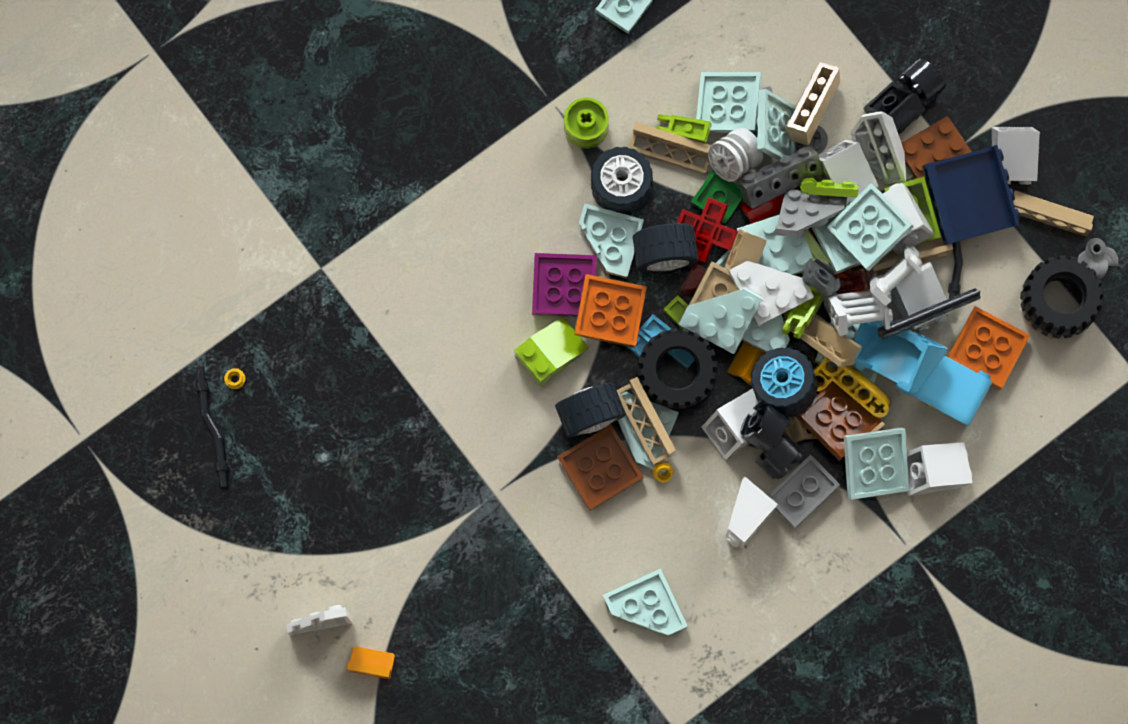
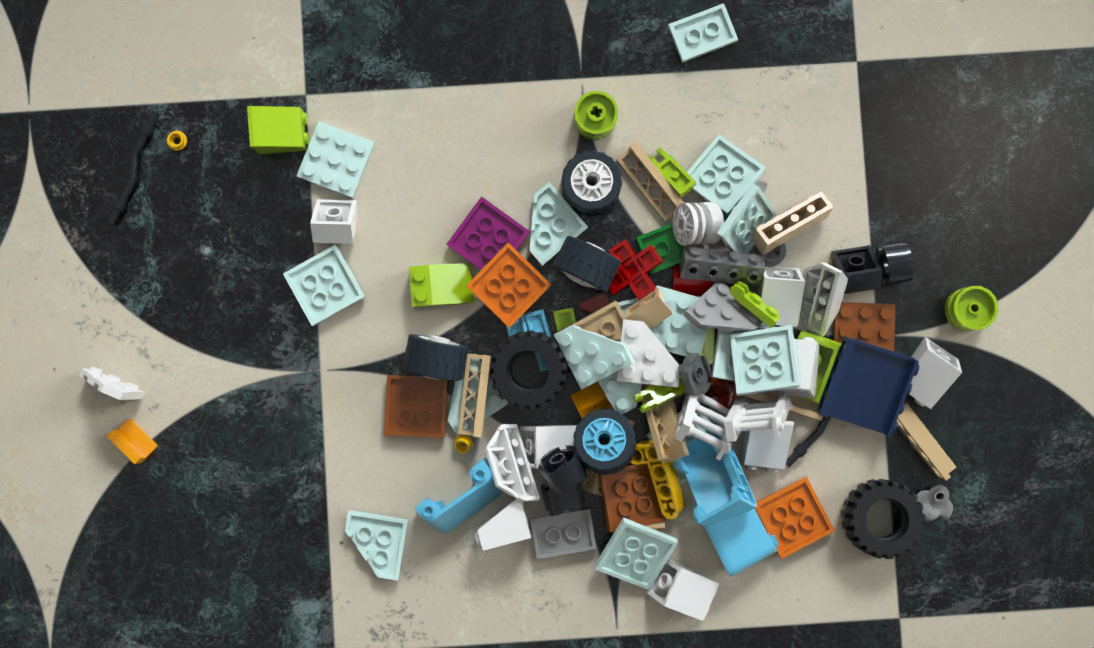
camera: 30 degrees right, 10 degrees up
(320, 309) = (277, 129): none -> lime slope
(385, 305) = (335, 159): none -> light aqua plate
(421, 357) = (334, 221): none -> white slope
(449, 417) = (324, 285): none -> light aqua plate
(692, 541) = (448, 517): none -> medium azure windscreen
(717, 456) = (510, 464): none -> white wedge
(929, 313) = (764, 463): black axle -> none
(1012, 77) = (971, 308): none -> lime wheel

